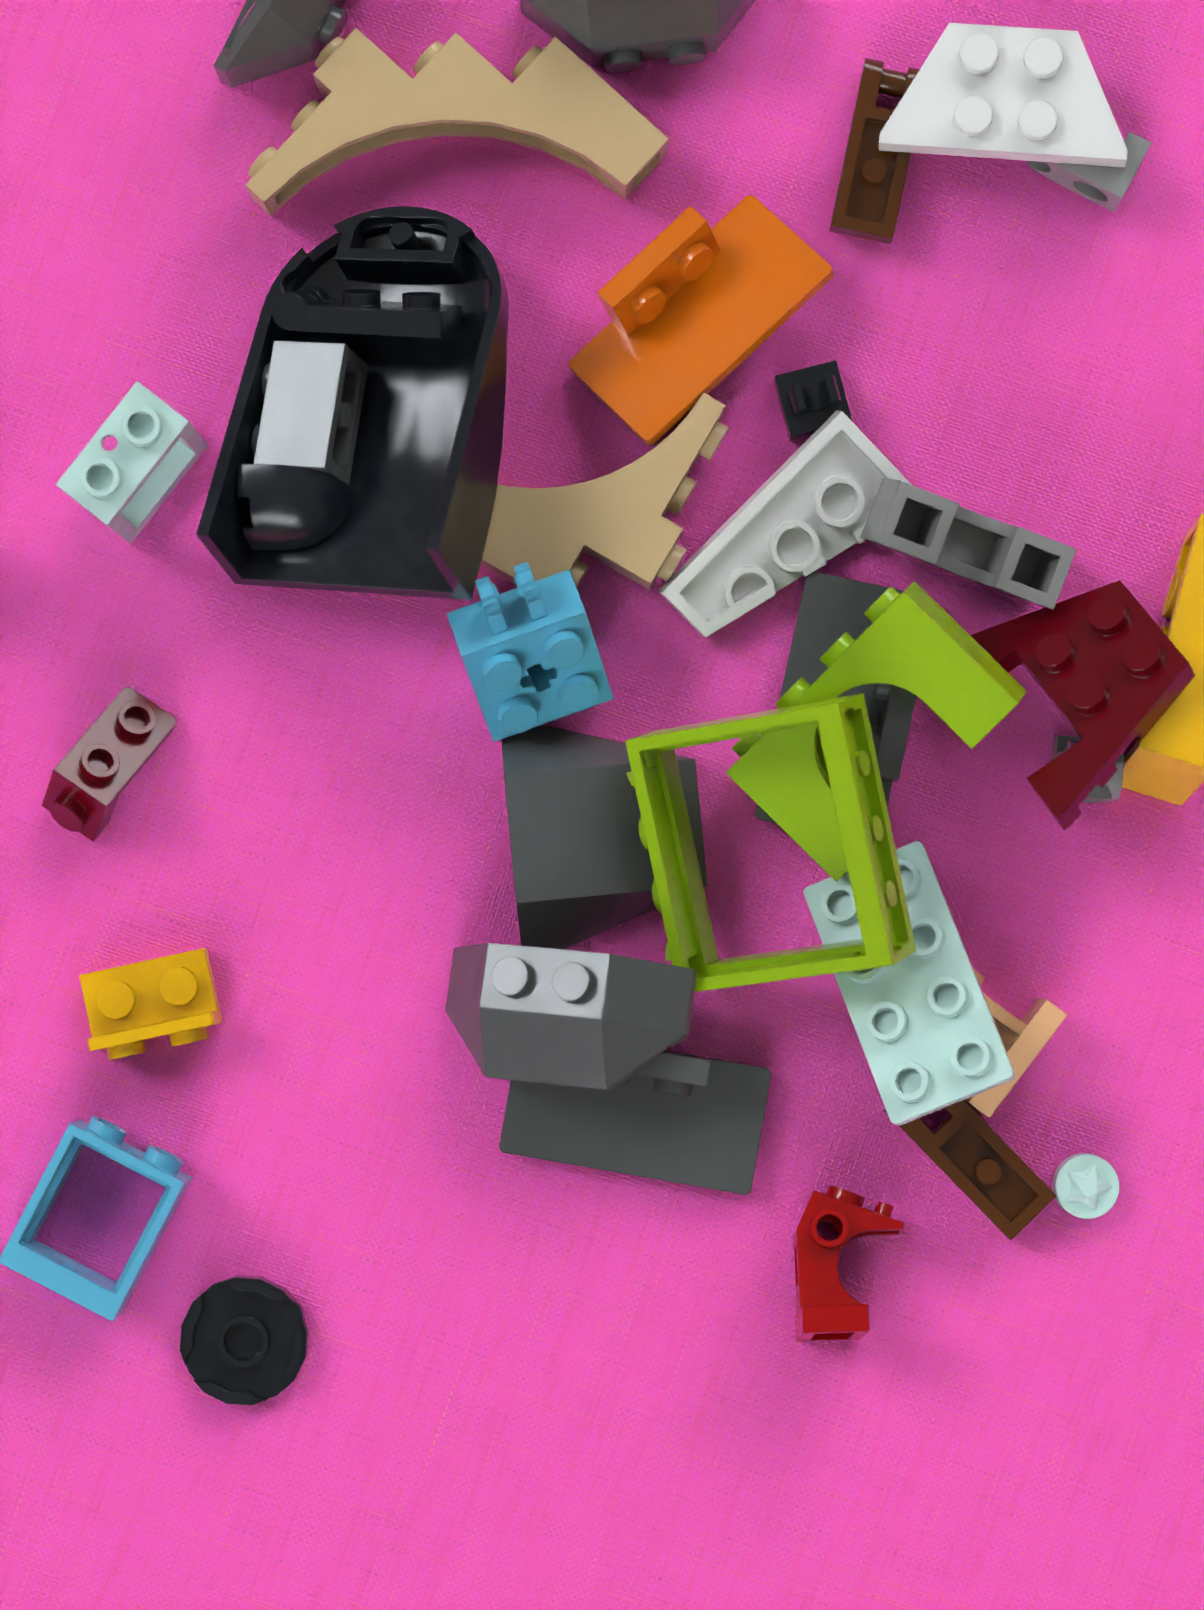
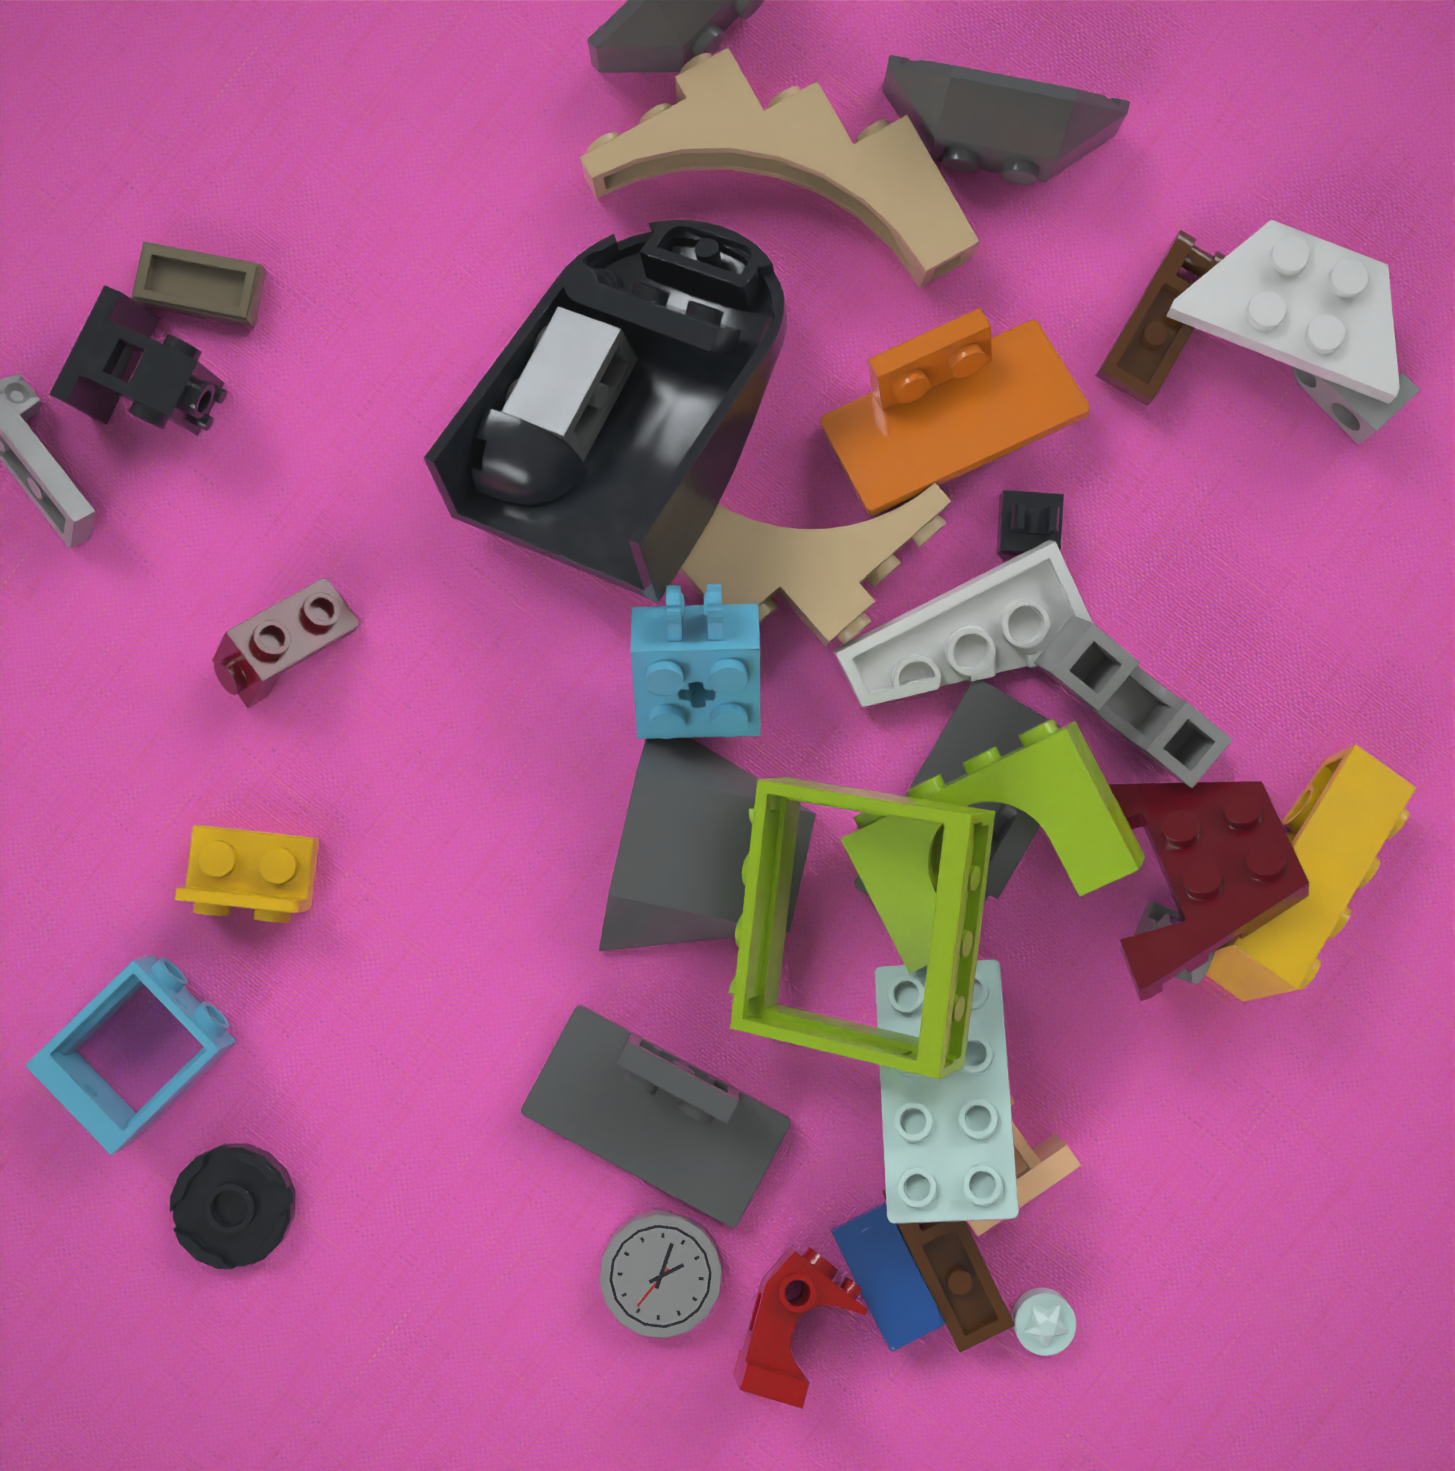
camera: 20 degrees right, 0 degrees up
(136, 477) = (396, 383): light aqua window -> none
(566, 1012) = (620, 1013): dark grey wedge -> none
(691, 1265) = (660, 1274): none -> light grey tile
(917, 1190) = (888, 1277): none -> blue slope

